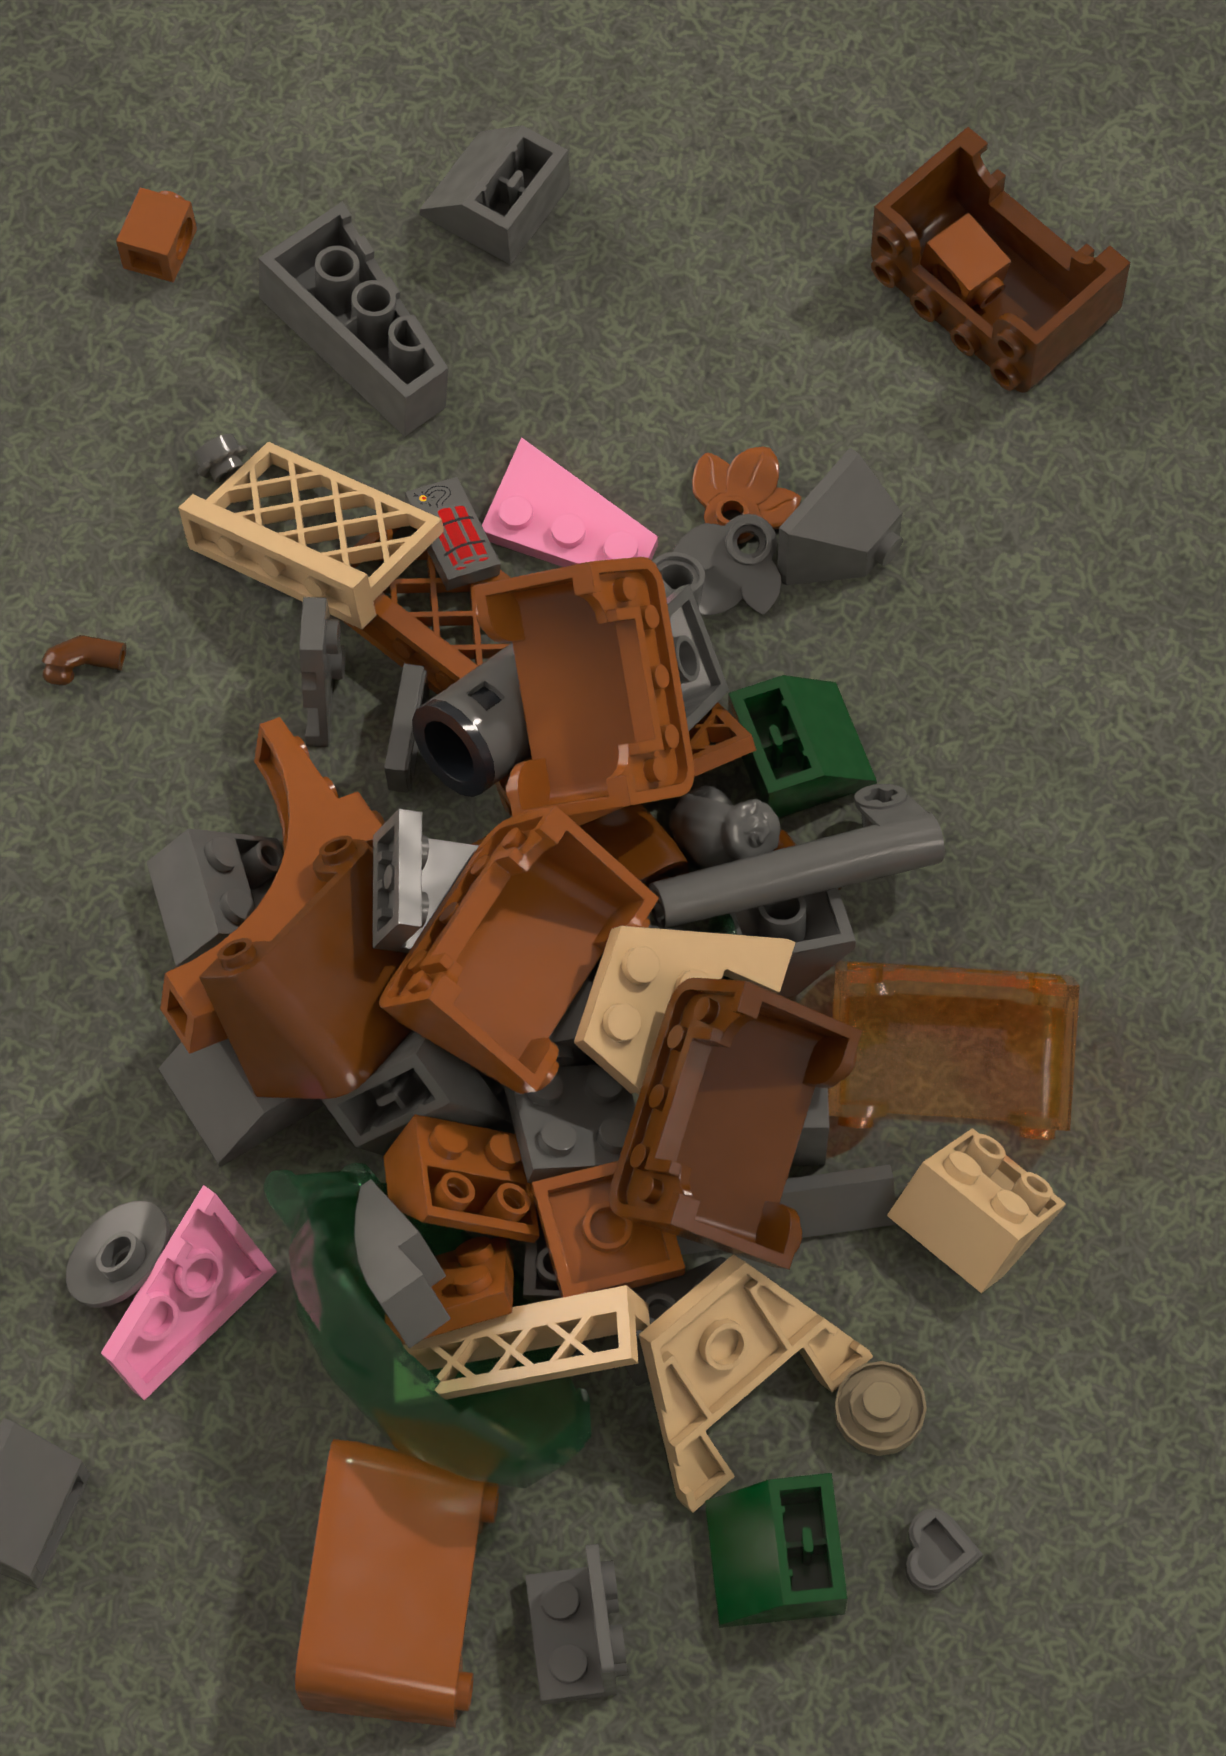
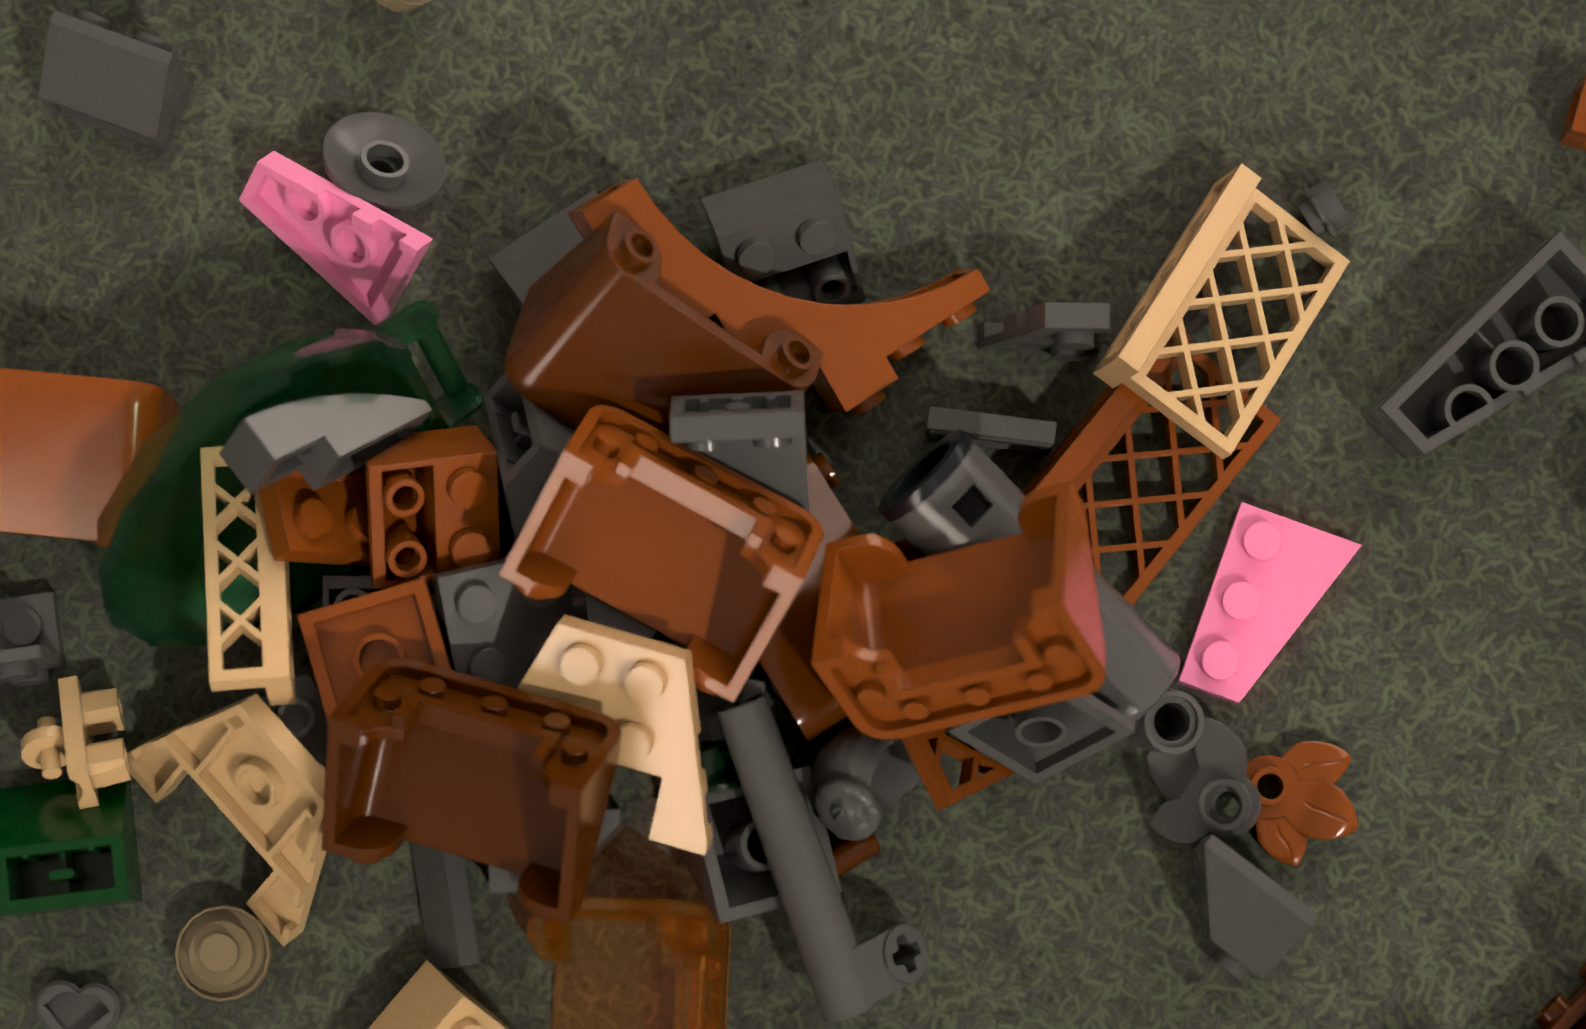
camera: 85 degrees right, 15 degrees up
(79, 651) = (1080, 70): reddish brown arm -> none
(463, 549) = (1210, 485): tile -> none
(677, 1544) = (87, 762): none -> tan hips
(801, 741) = (978, 866): dark green slope -> none

